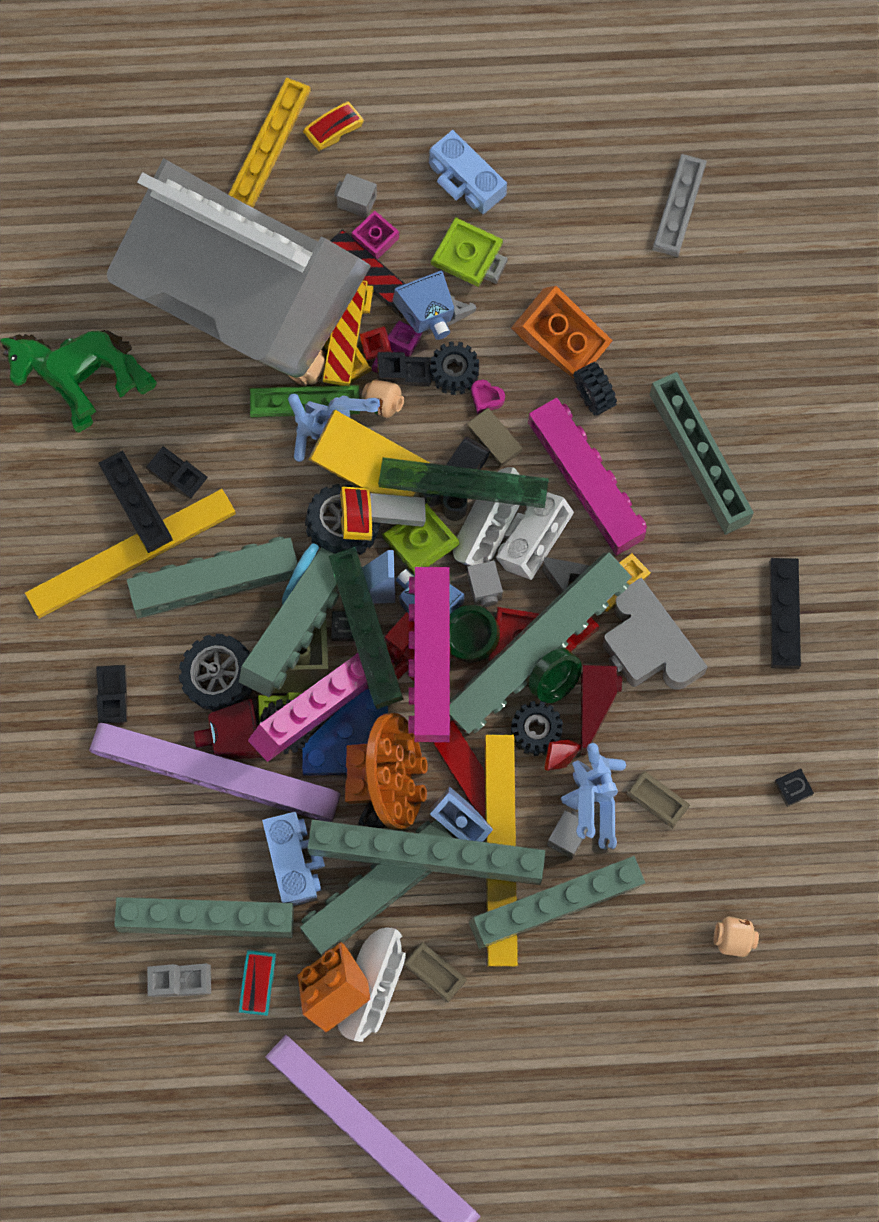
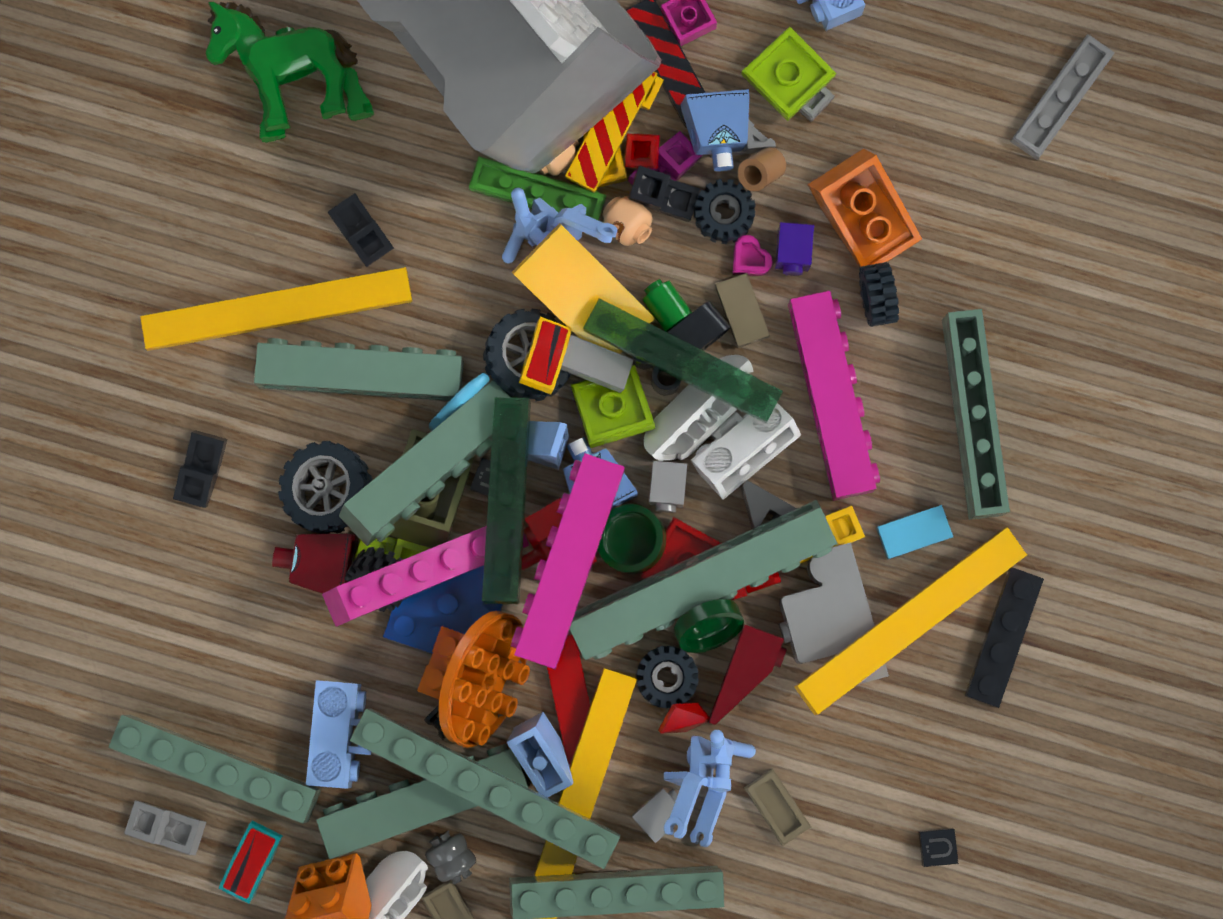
camera: 20 degrees right, 10 degrees up
(135, 501) = (300, 251): black plate -> none
(215, 772) = (284, 603): lavender beam -> none
(416, 922) = (450, 857): none -> dark grey piece
(433, 448) = (666, 304): none -> green brick
(472, 326) = (761, 169): none -> medium nougat brick
(517, 377) = (794, 248): none -> dark purple brick
(687, 557) = (914, 532): none -> medium azure tile
(708, 620) = (910, 621): none -> yellow tile

